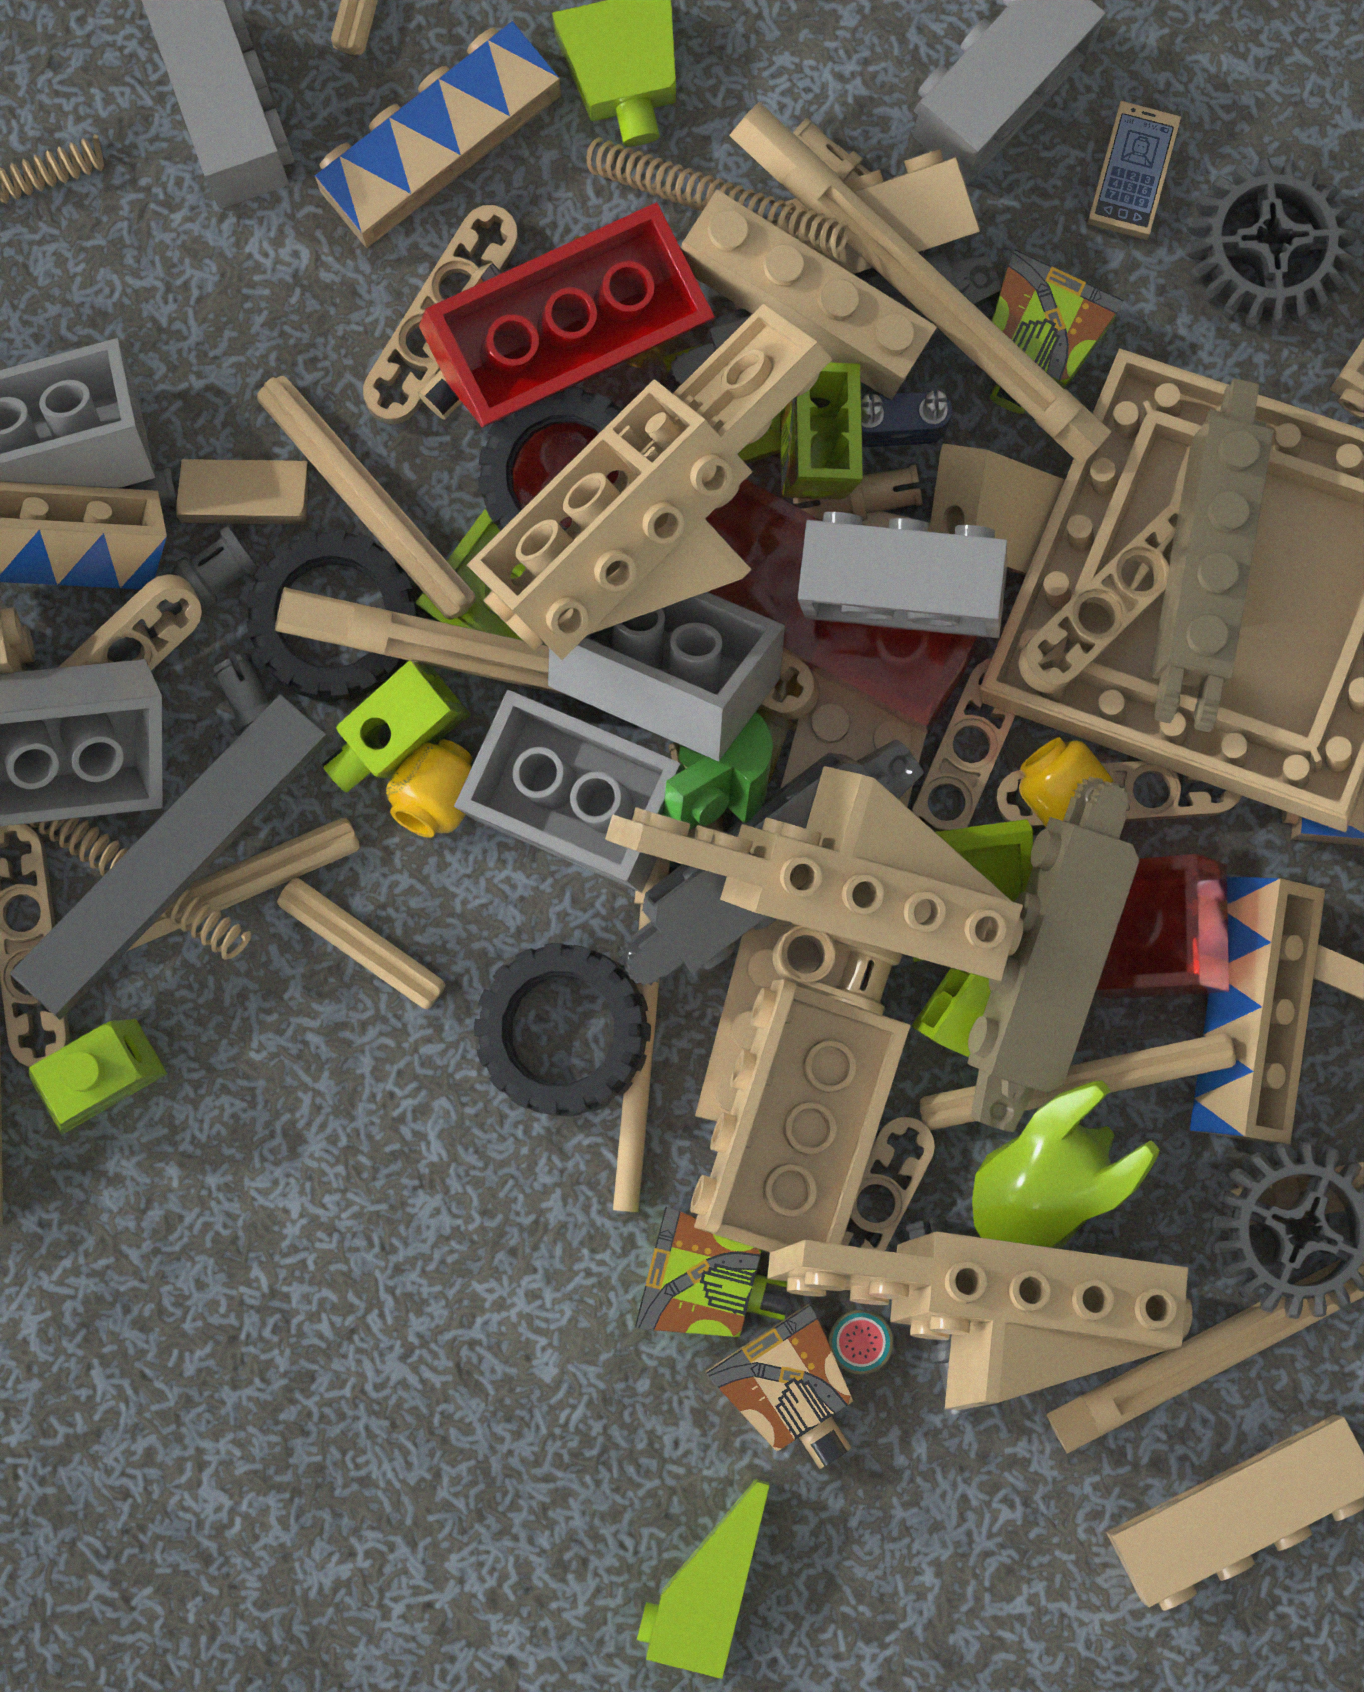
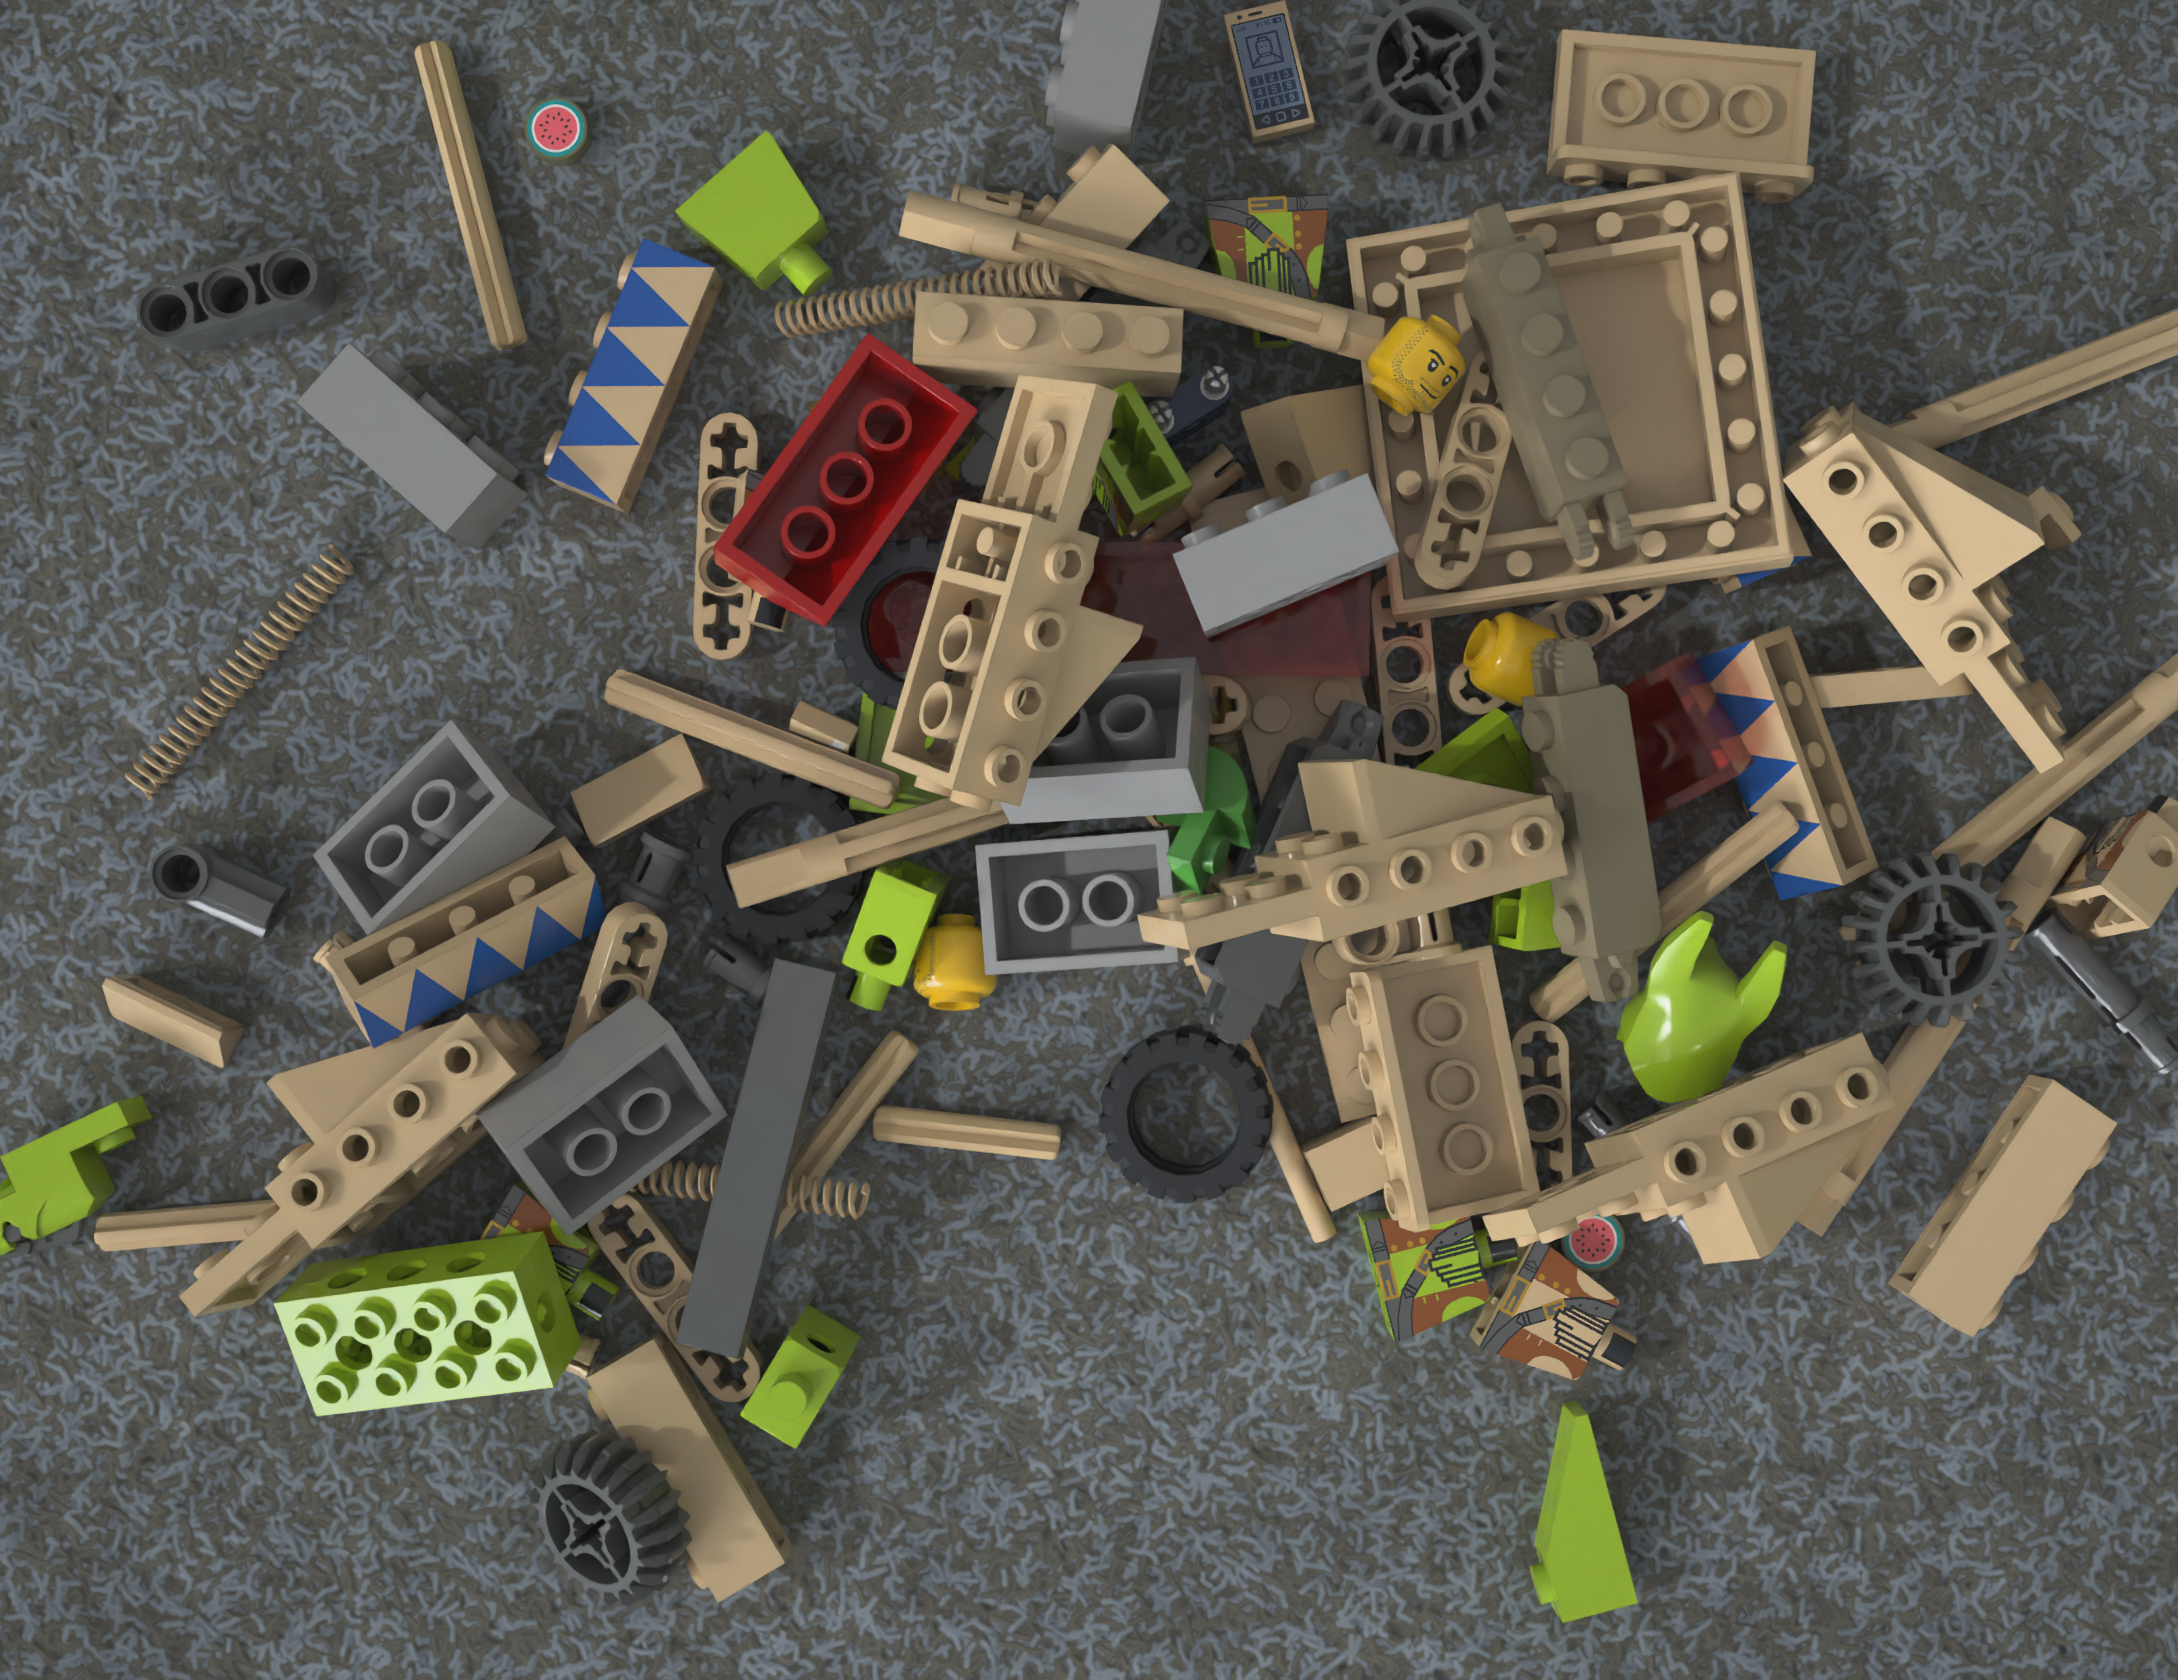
camera: 30 degrees left, 5 degrees up
(433, 521) = (823, 728): none -> tan tile
(677, 1151) = (1346, 1163): none -> tan brick
(1114, 483) = (1416, 364): none -> yellow head

